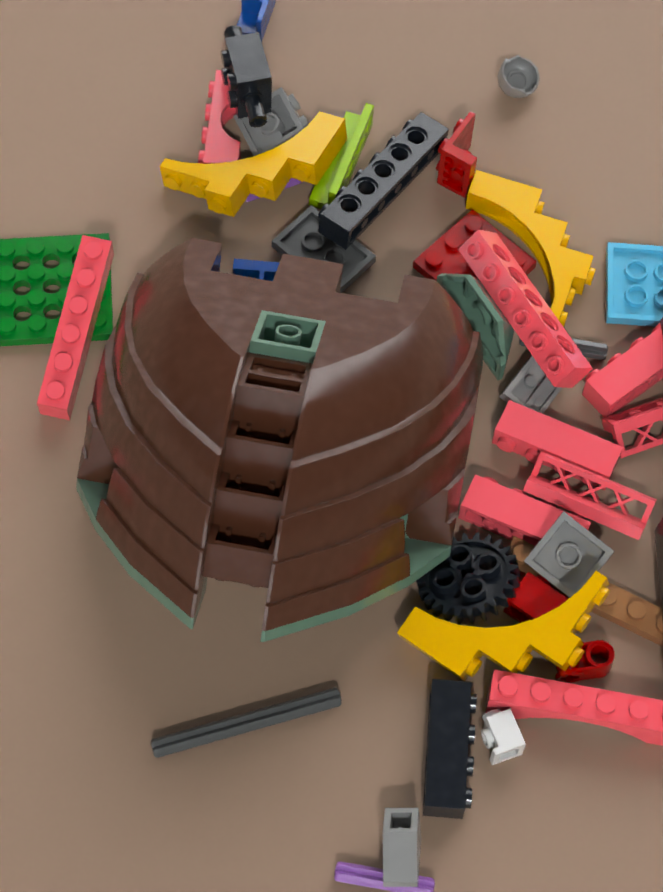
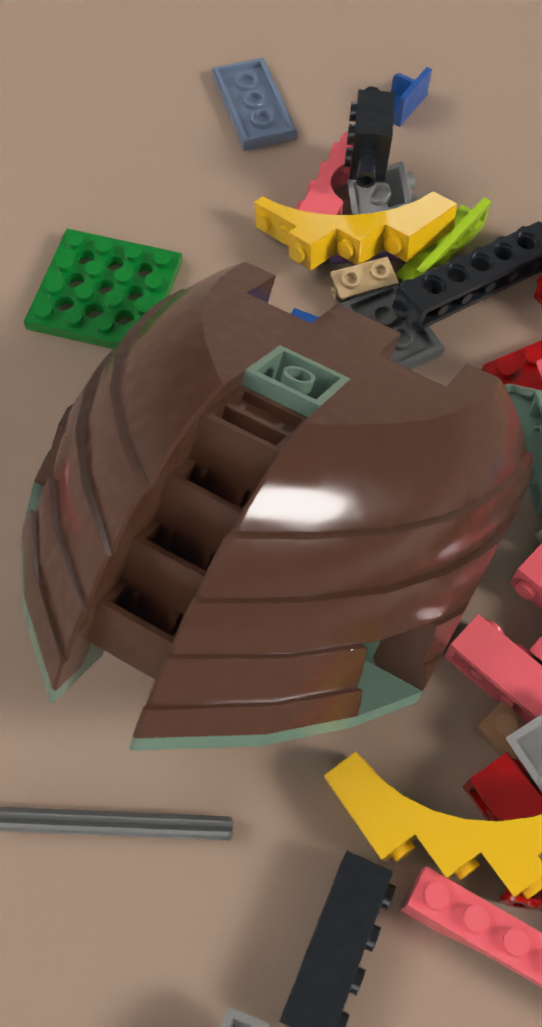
camera: 20 degrees right, 0 degrees up
(75, 328) = (104, 325): coral brick -> none
(113, 58) = (254, 104): none -> sand blue tile
(283, 211) = (363, 278): none -> tan hinge
(471, 580) = (434, 737): black gear -> none
(502, 735) = (410, 952): white brick -> none

